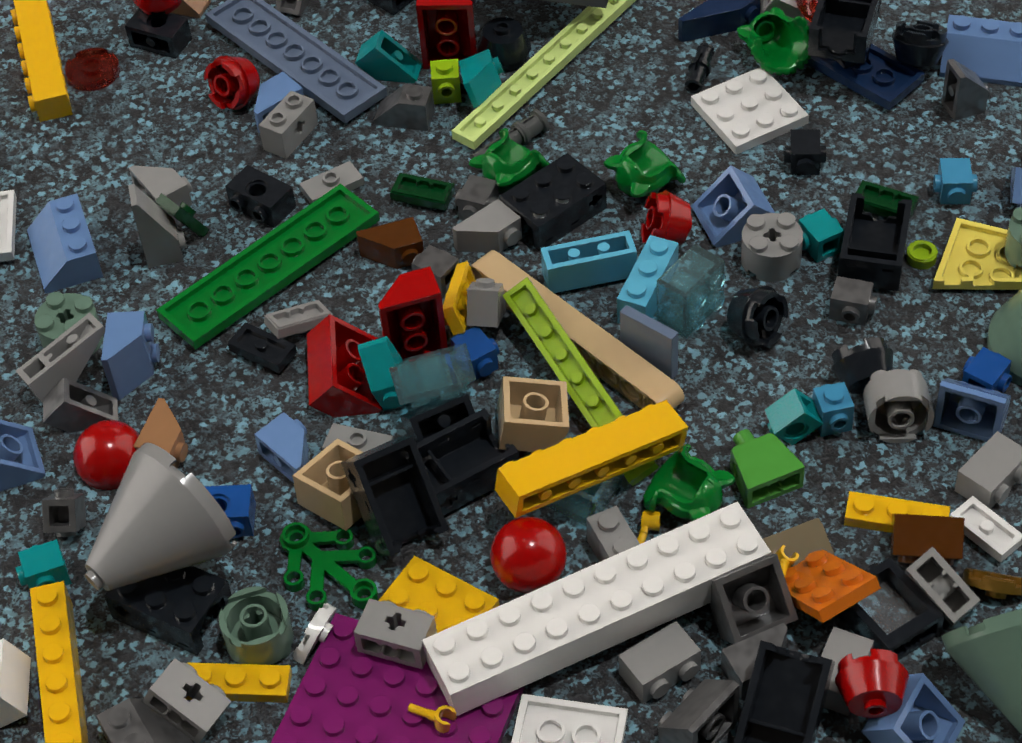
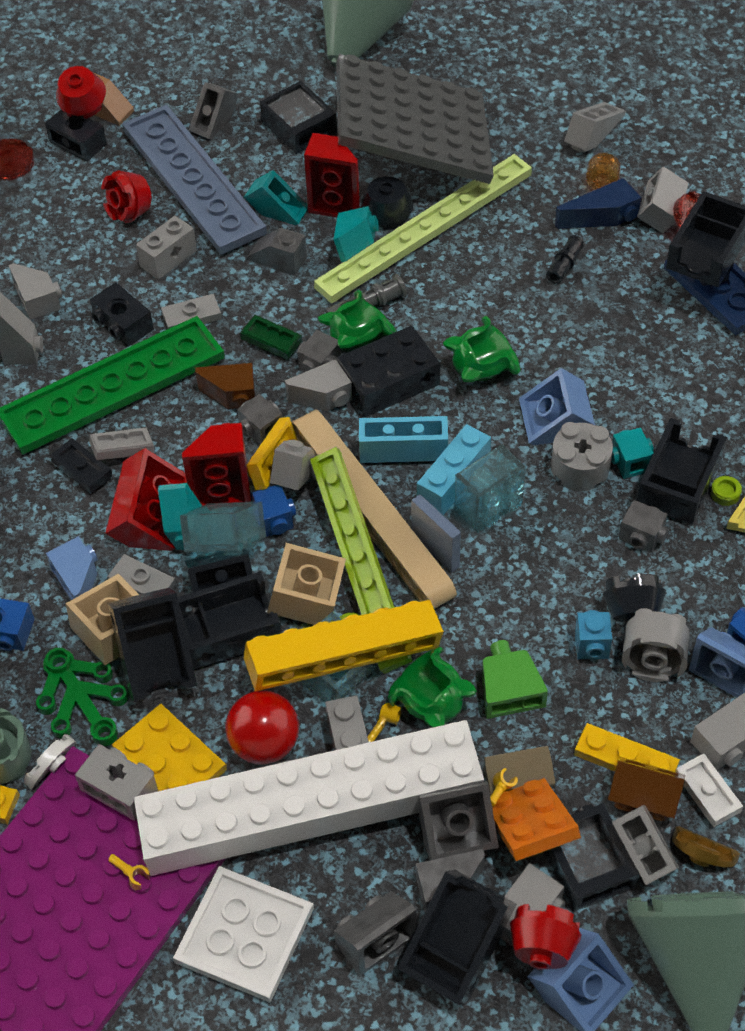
camera: 10 degrees right, 5 degrees up
(183, 214) = (43, 320): dark green plate -> none
(271, 94) = (159, 213): medium blue slope -> none
(445, 81) = (321, 230): lime brick -> none
(660, 662) = (357, 862): light grey brick -> none
(667, 217) = (489, 409): red cone -> none
(749, 110) = (601, 310): white plate -> none
(757, 315) = (547, 525): black cone -> none
(777, 41) = (643, 246): green hair -> none
(793, 417) = (552, 636): teal brick -> none
(805, 152) = (641, 364): black brick -> none
(884, 200) = (702, 427): dark green plate -> none

